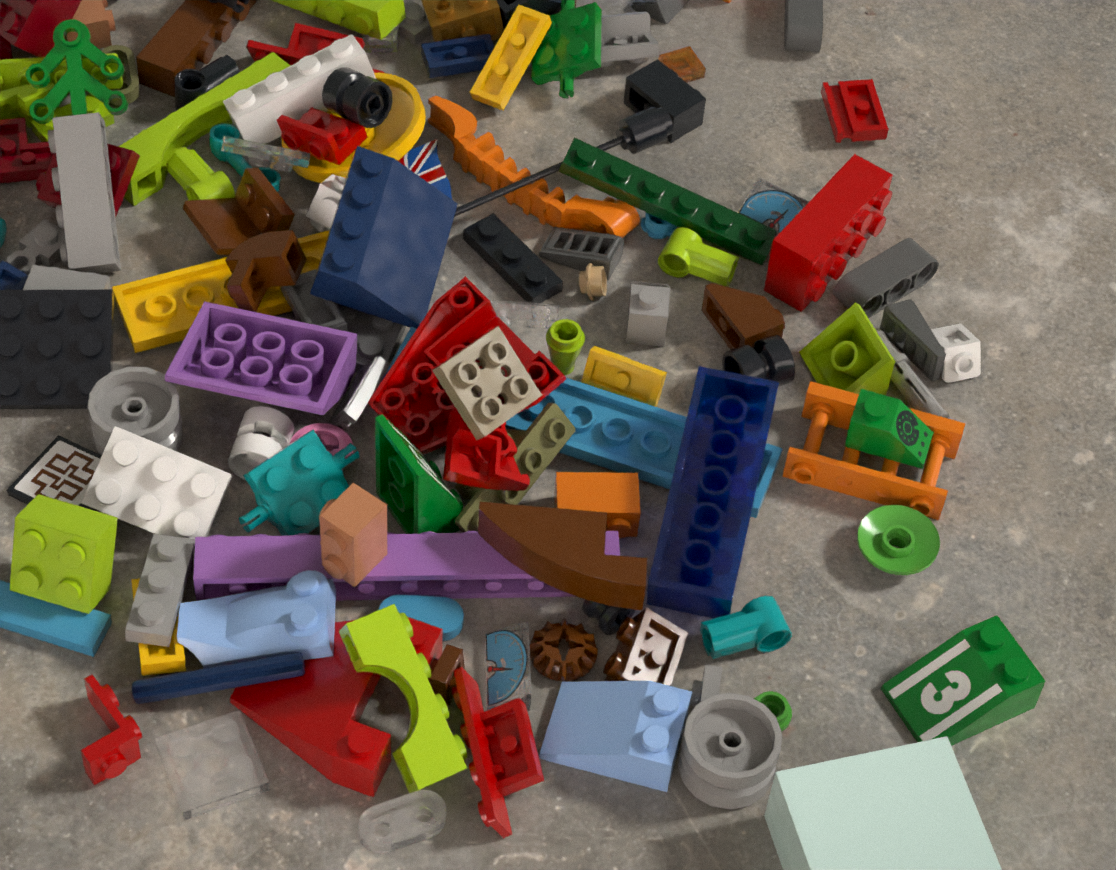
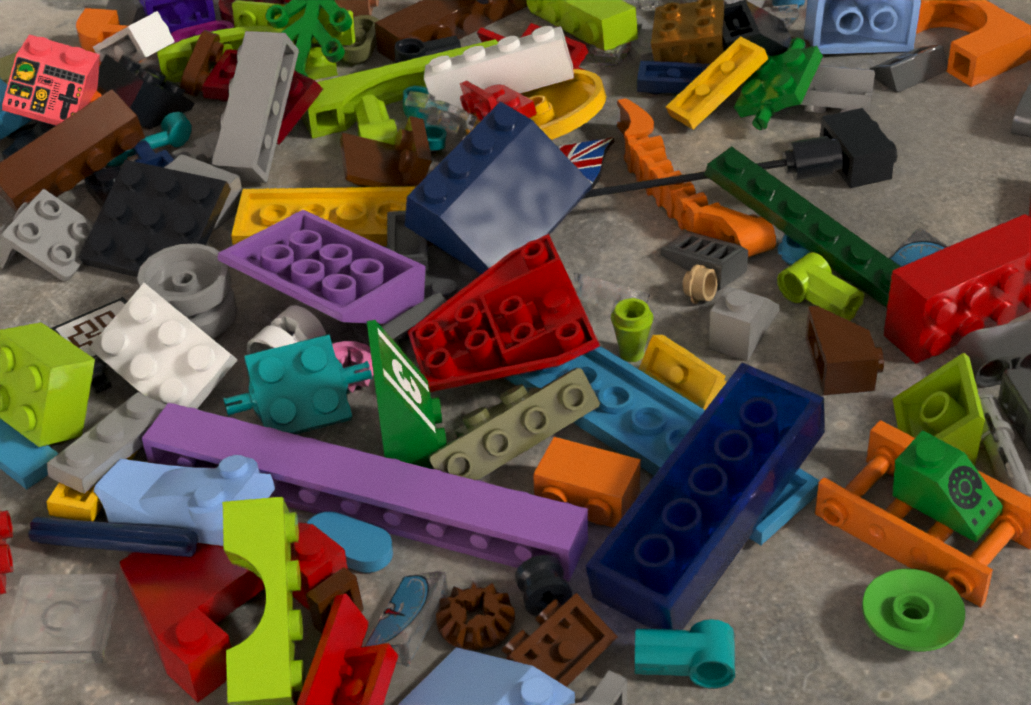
camera: 30 degrees right, 10 degrees down
(261, 263) = (371, 192): reddish brown brick -> none
(353, 534) = (295, 429): nougat brick -> none
(357, 97) = (540, 77): black wheel -> none
(476, 388) = (490, 345): plate -> none
(481, 462) = (481, 391): red slope -> none
(512, 259) = (631, 250): black plate -> none
(564, 551) = (515, 510): reddish brown slope -> none
(684, 63) = (896, 125): clear orange tile -> none
(766, 360) = (844, 393): black wheel -> none

